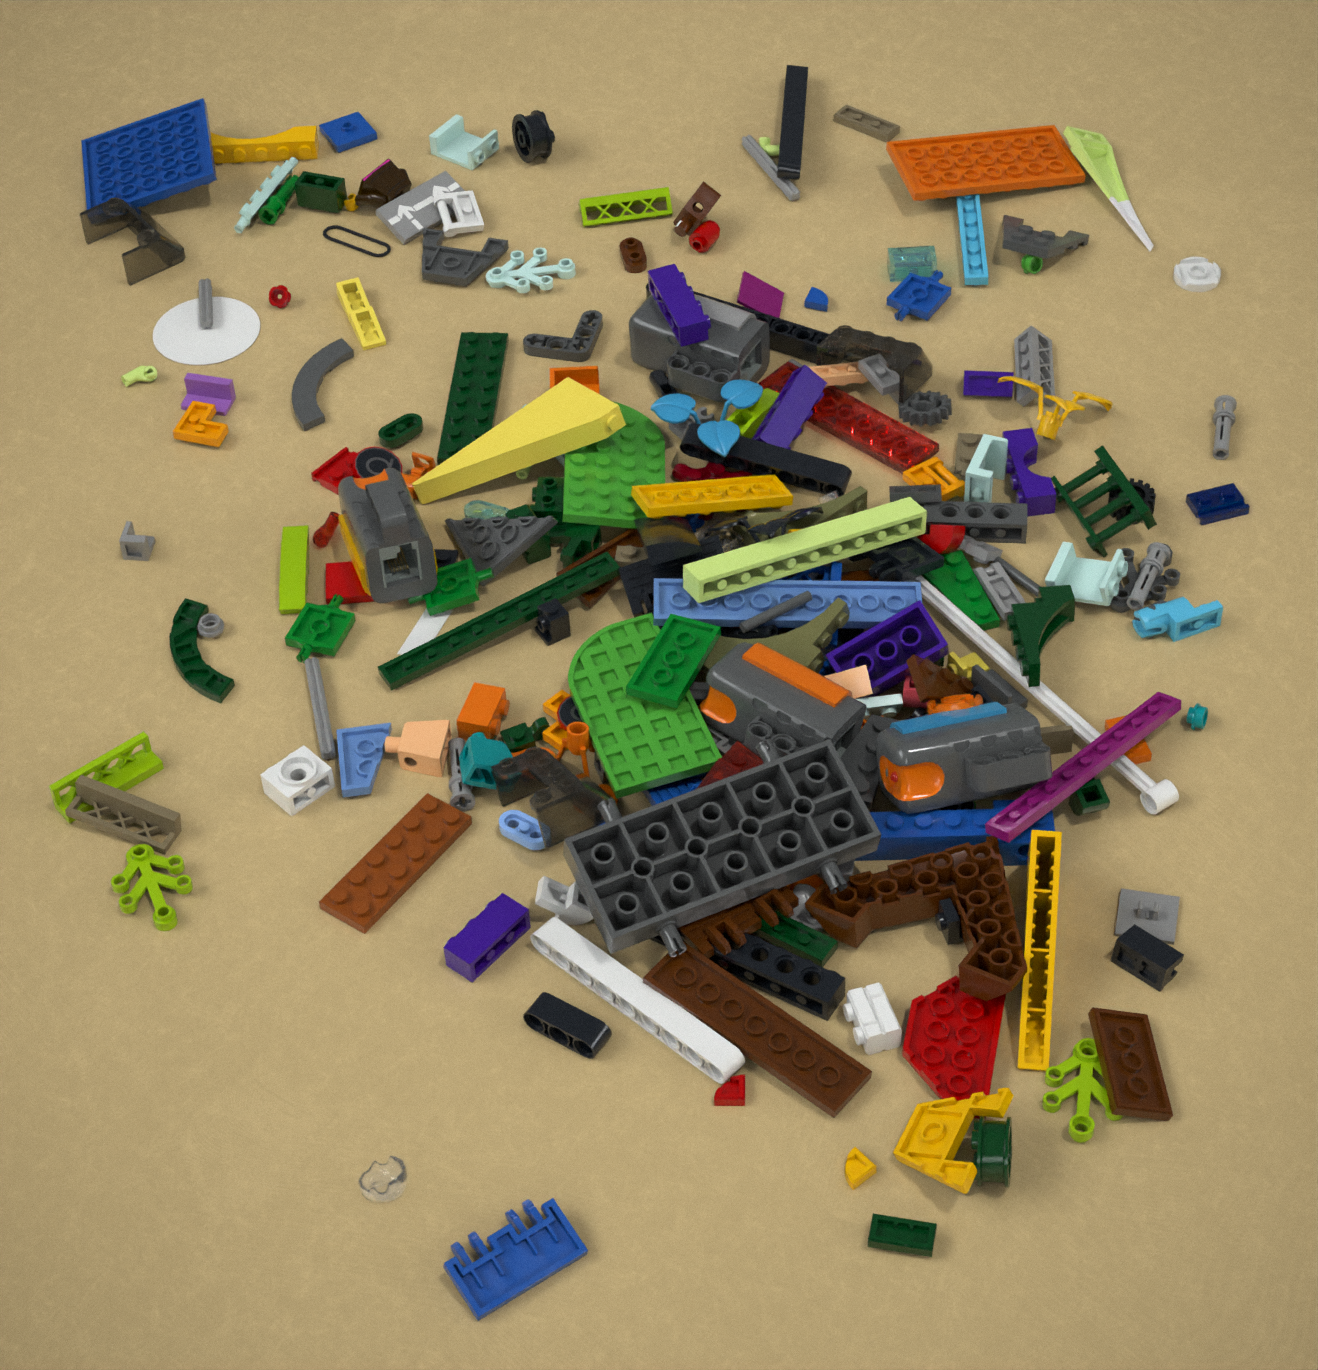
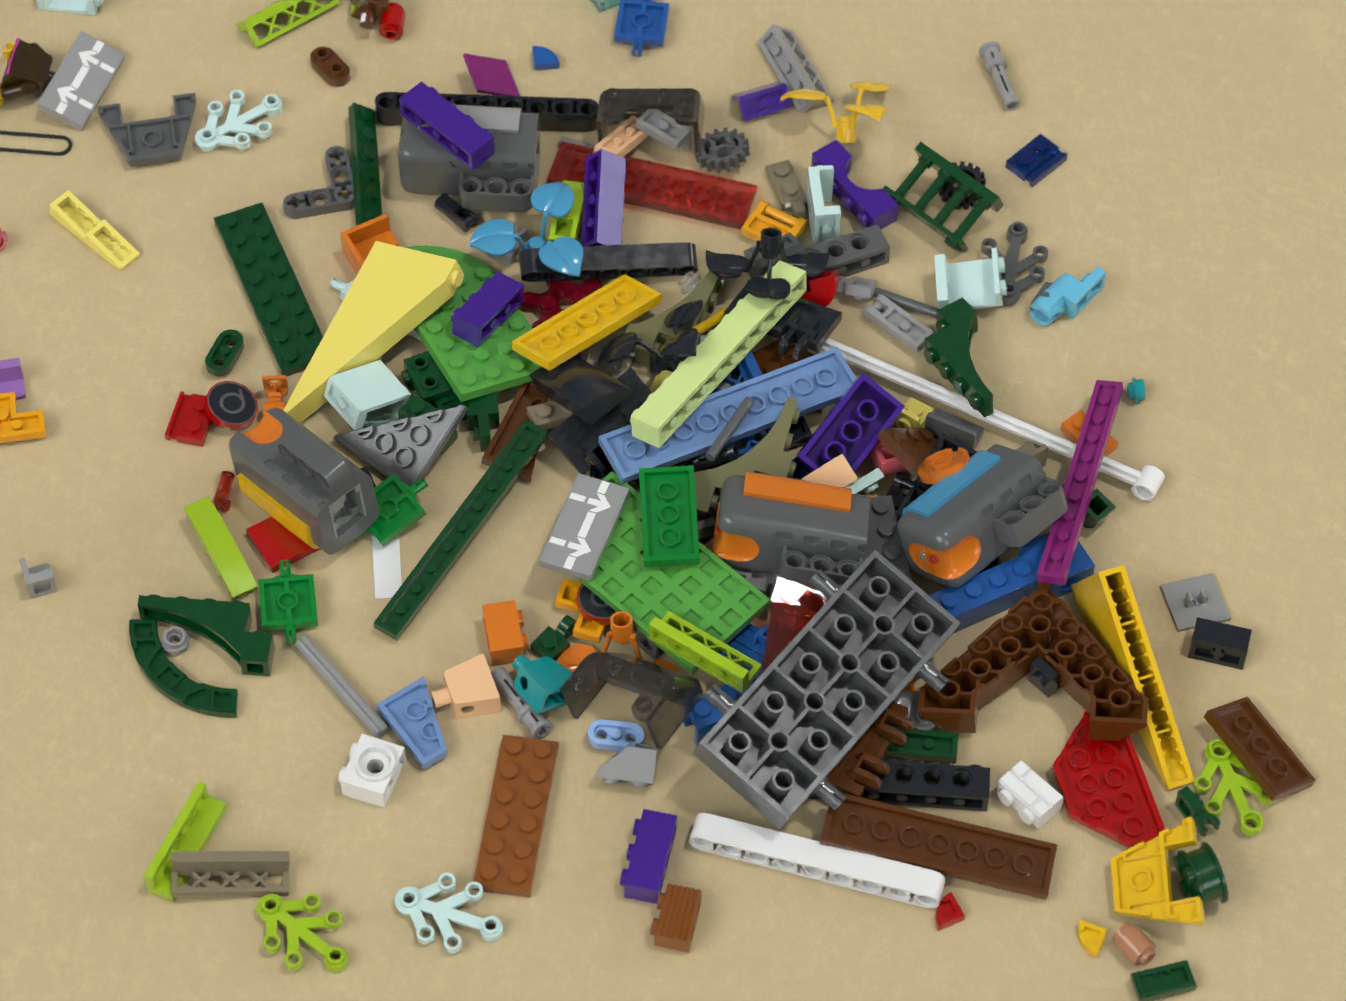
camera: 30 degrees left, 10 degrees up
(254, 623) = (220, 622): none -> dark green arch
(282, 914) = (446, 911): none -> light aqua plant
(311, 377) = (90, 328): dark grey tile -> none
(465, 209) = (128, 71): white plate -> none
(476, 997) = (677, 917): none -> dark orange brick
(488, 487) = (364, 390): none -> light aqua panel
(521, 854) = (633, 763): none -> light grey slope
(552, 622) = (510, 511): black brick -> none
(563, 900) = (702, 793): white brick -> none
(567, 1025) = (773, 911): black beam -> none
(595, 646) = (584, 527): none -> light grey tile
(612, 327) = (364, 163): none -> dark green plate
(622, 775) = (701, 655): none -> lime fence
(630, 457) = (487, 309): none -> dark purple brick
(893, 1189) = (1134, 944): none -> nougat brick
(901, 478) = (770, 247): none -> black plant
(963, 589) = (867, 336): green wing -> none
(1028, 1090) = (1192, 806): none -> dark green plate
(1137, 595) = (1021, 253): light grey pin -> none

